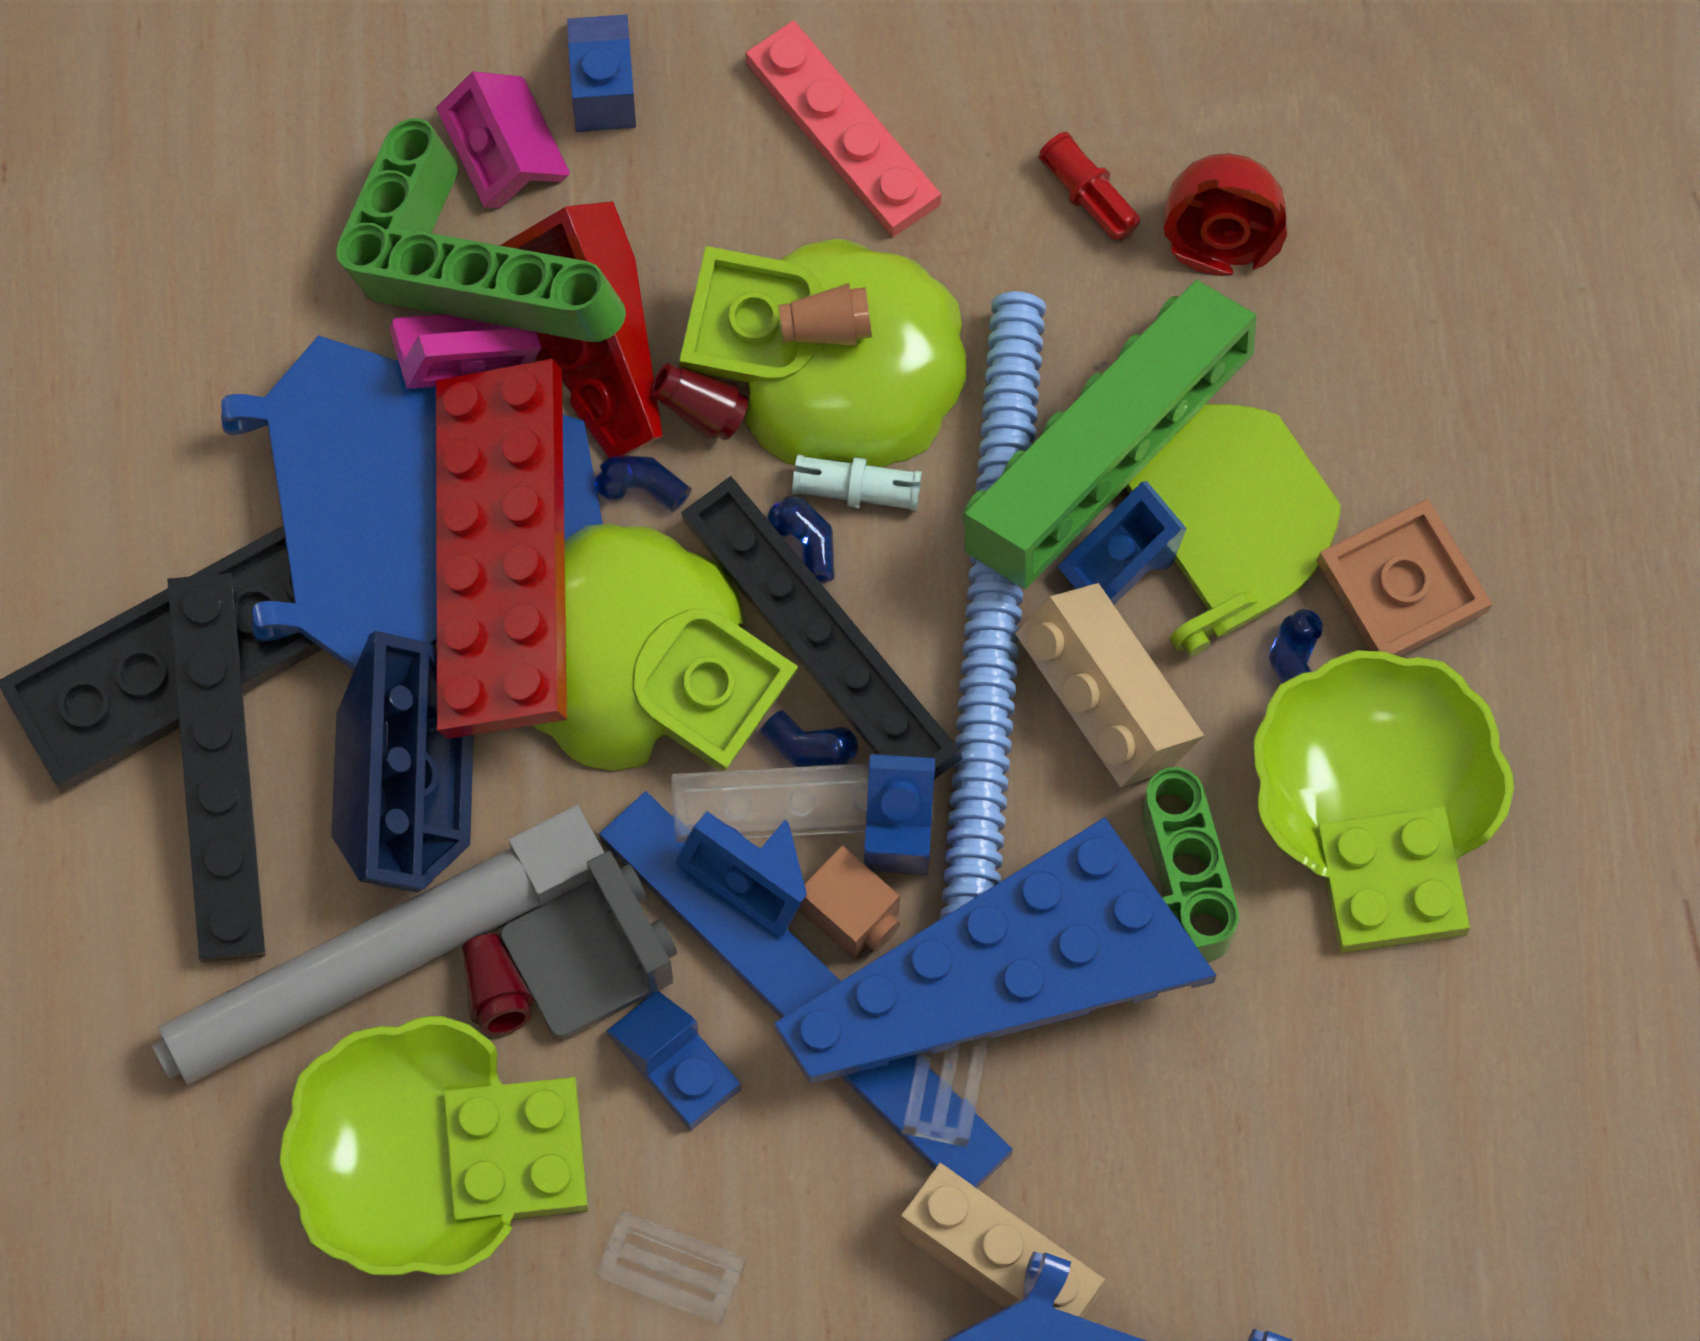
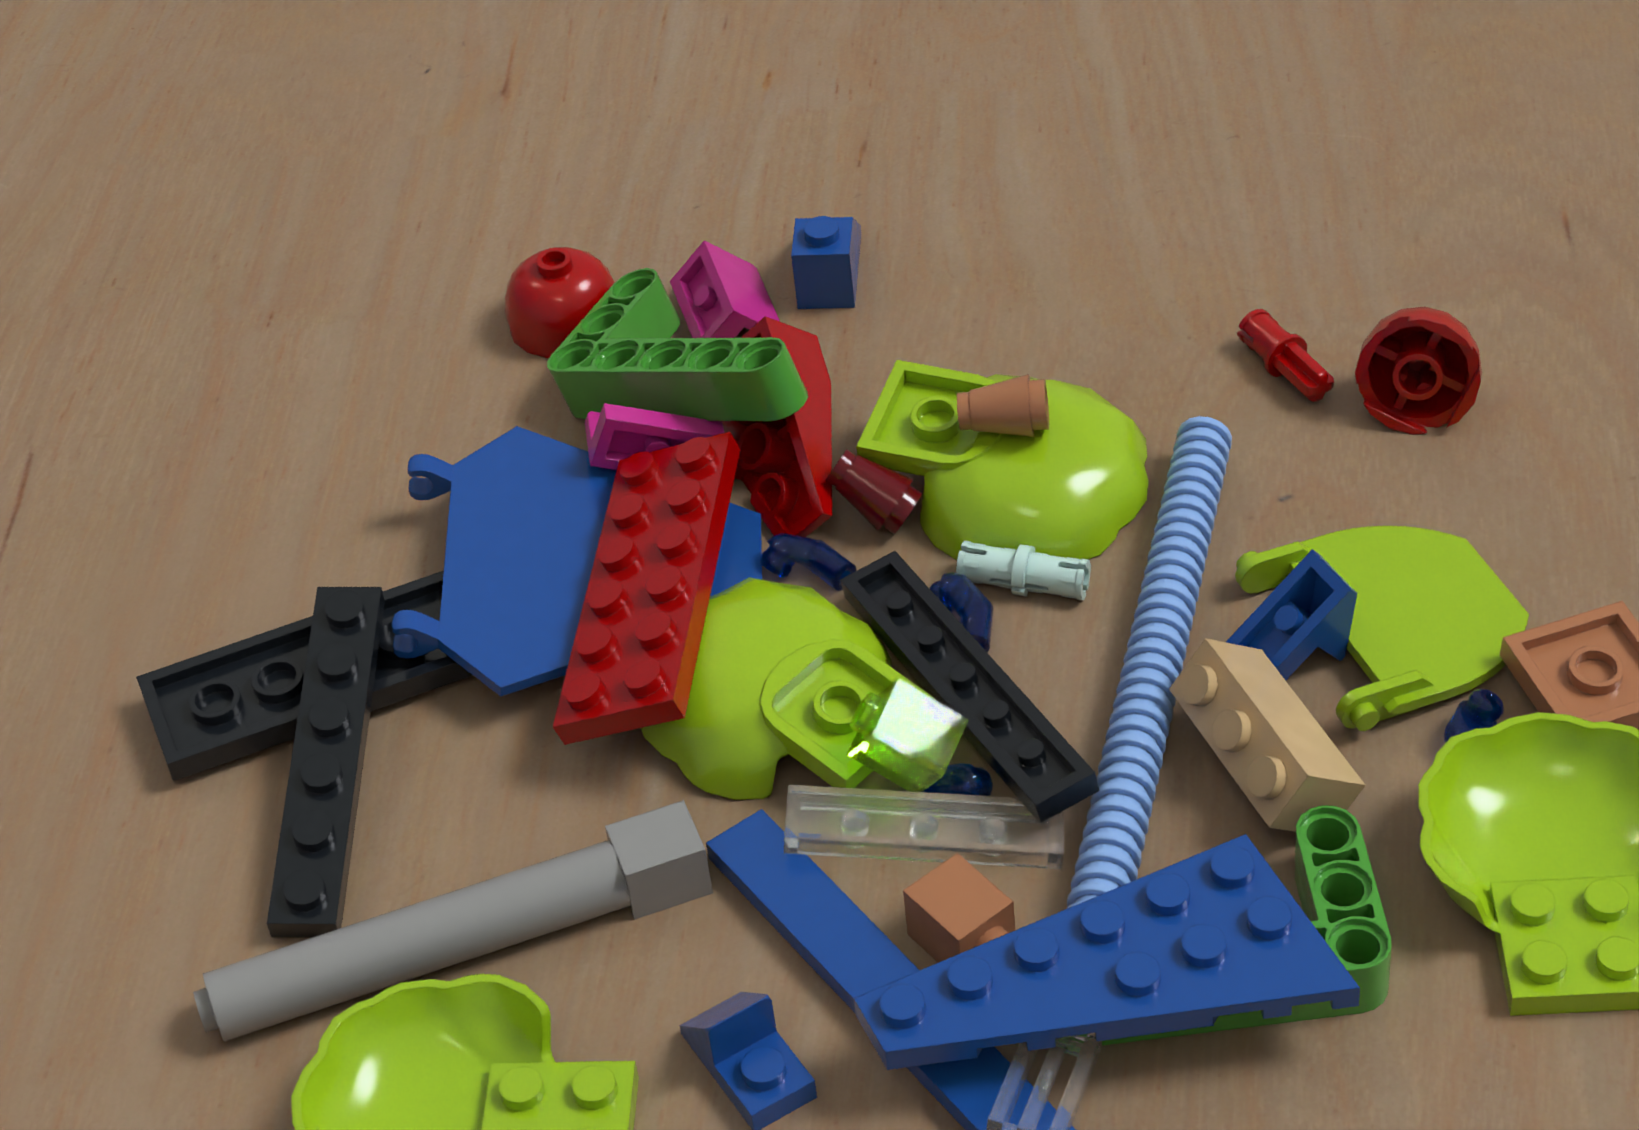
camera: 15 degrees right, 25 degrees down
(323, 148) = (552, 296): none -> red cylinder
(396, 779) = (509, 779): dark blue wedge -> none
(494, 987) = (567, 973): dark red cone -> none
(591, 949) = (678, 944): dark grey bracket -> none
(754, 879) = (851, 875): blue slope -> none
(780, 724) = (905, 736): none -> clear neon green brick
(843, 128) = (1052, 311): coral plate -> none
(899, 814) = (1023, 831): blue slope -> none
(1108, 433) = (1272, 523): bright green brick -> none

